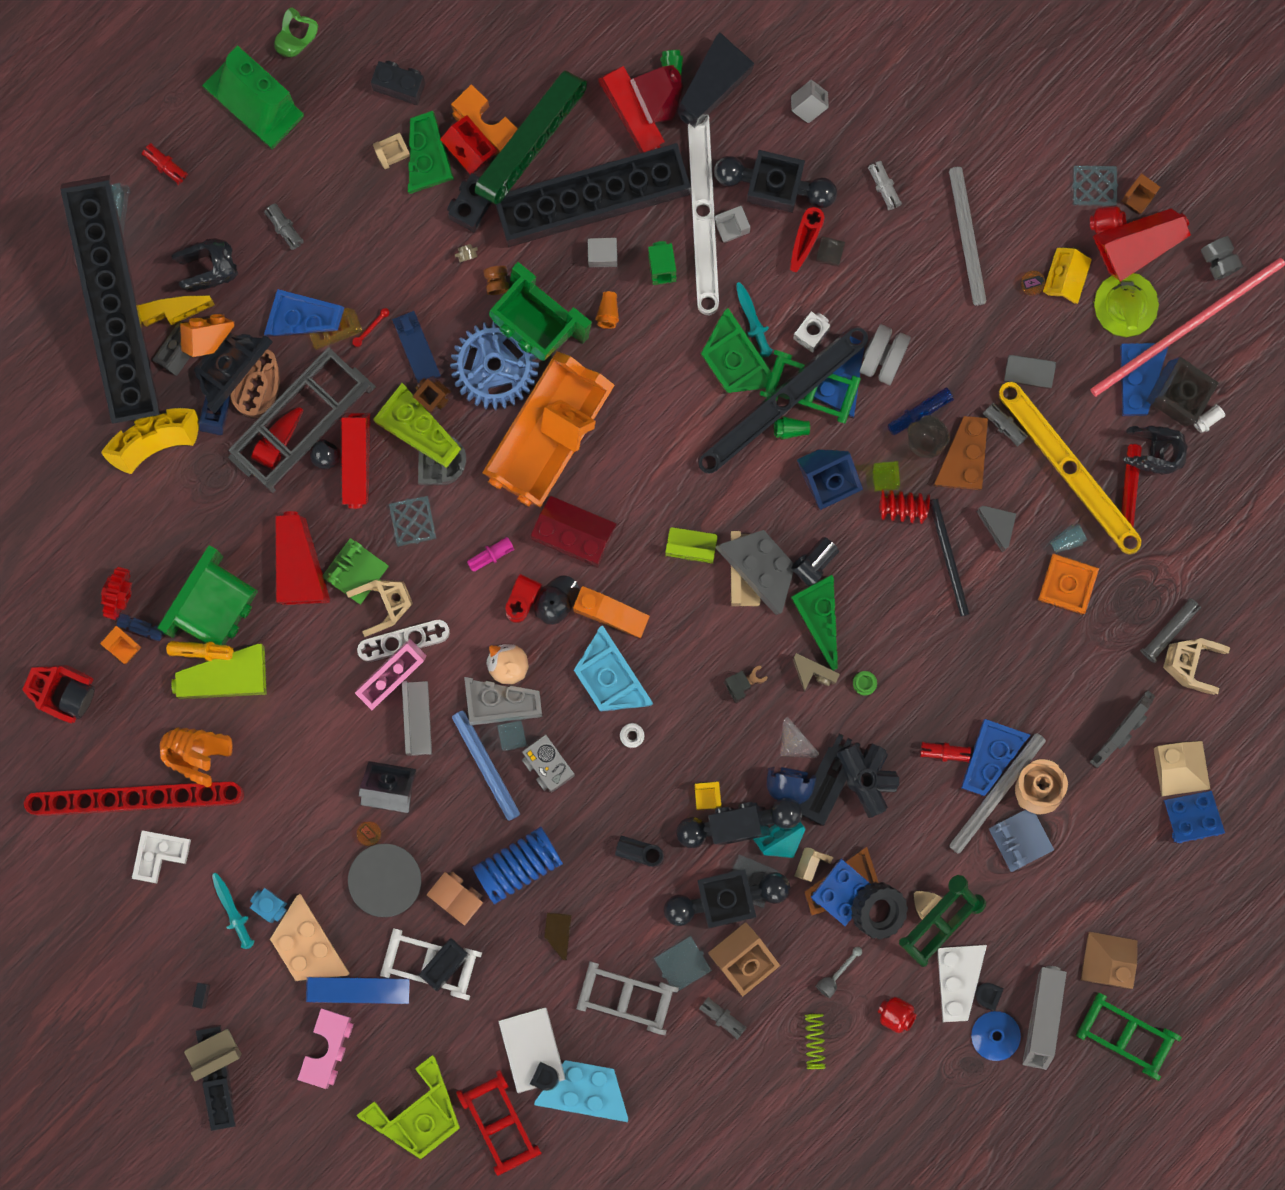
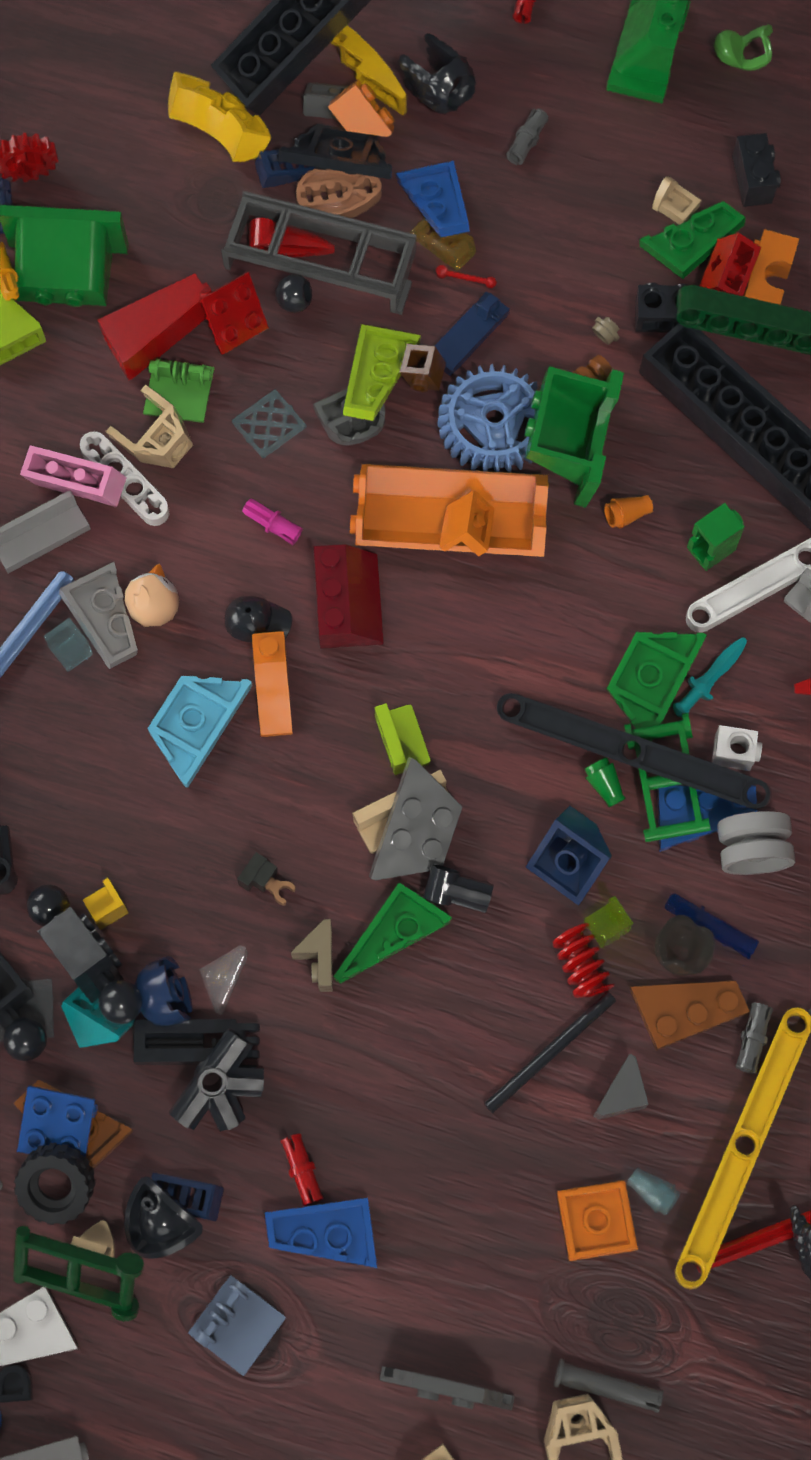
camera: 60 degrees right, 10 degrees down
(321, 505) = (233, 312): none -> red hinge
(355, 459) = (306, 324): red slope -> none
(524, 595) = (240, 578): red piece -> none
(548, 764) = (54, 701): light grey brick -> none
(602, 252) = (691, 470): light grey panel -> none
(635, 728) = (133, 773): white plate -> none
(809, 863) = (79, 1067): tan tile -> none
(864, 683) = (339, 1026): bright green plate -> none
(931, 813) = (212, 1200): none -> dark blue slope
(935, 857) = (157, 1221): none -> black hat
(997, 793) = (285, 1264): light grey axle -> none
(1052, 780) = (304, 1333): light nougat brick -> none

